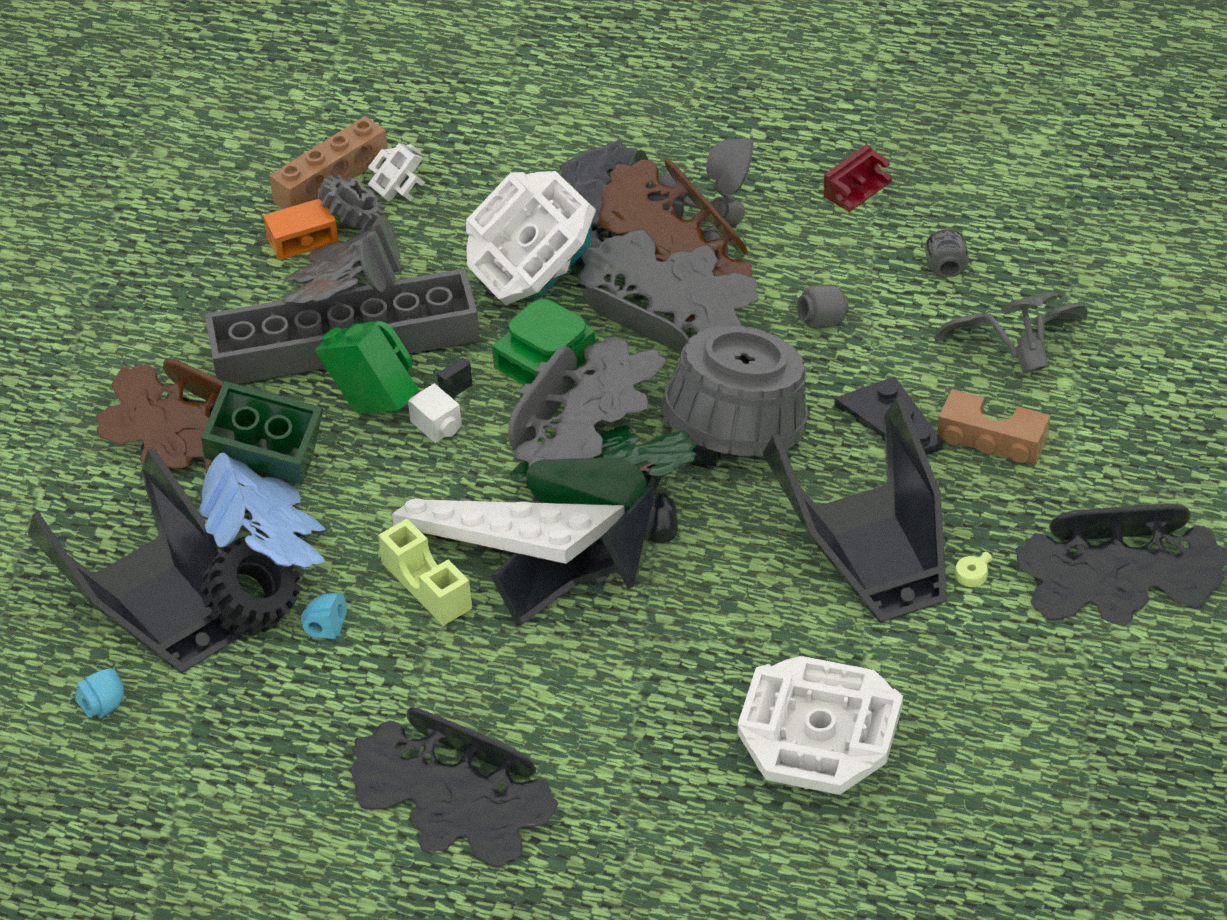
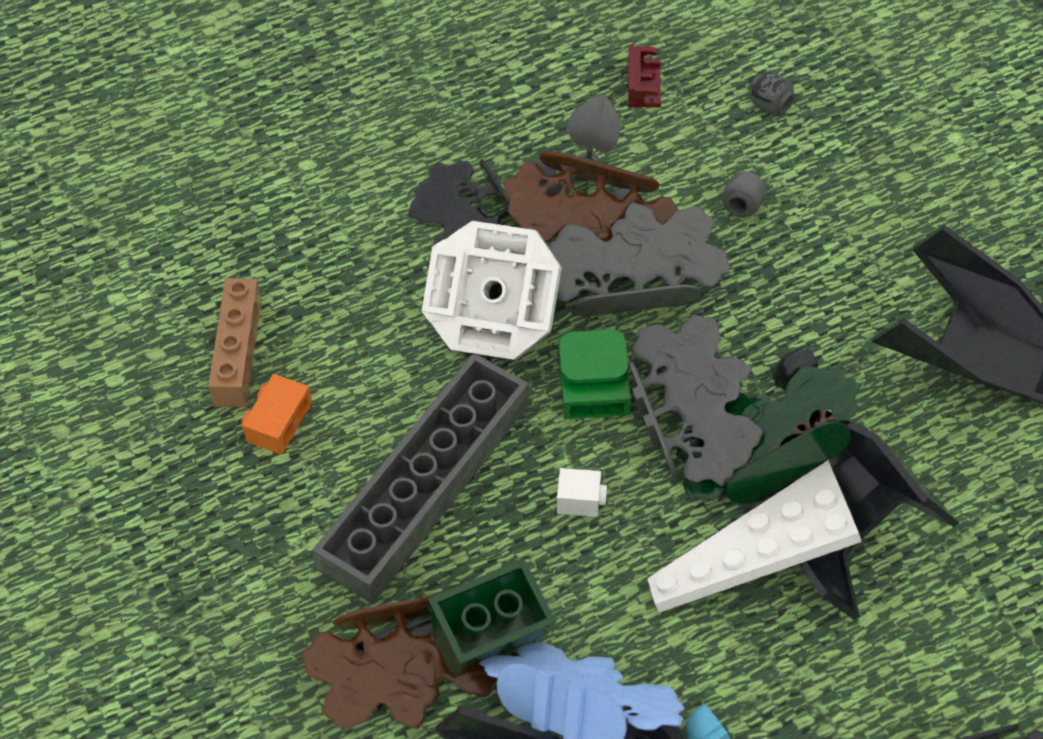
camera: 45 degrees left, 10 degrees up
(350, 201) = (296, 361): dark grey gear -> none
(368, 366) = (507, 493): green brick -> none
(373, 247) = (364, 424): dark grey plant -> none
(390, 177) = (297, 316): white piece -> none
(437, 587) = (766, 639): yellowish green arch -> none
(455, 378) = (558, 450): black tile -> none
(737, 391) = (792, 307): dark grey piece -> none
(874, 401) = (879, 244): black wing -> none
(1017, 438) = (989, 197): medium nougat arch -> none
(1029, 348) = (917, 126): dark grey plant -> none

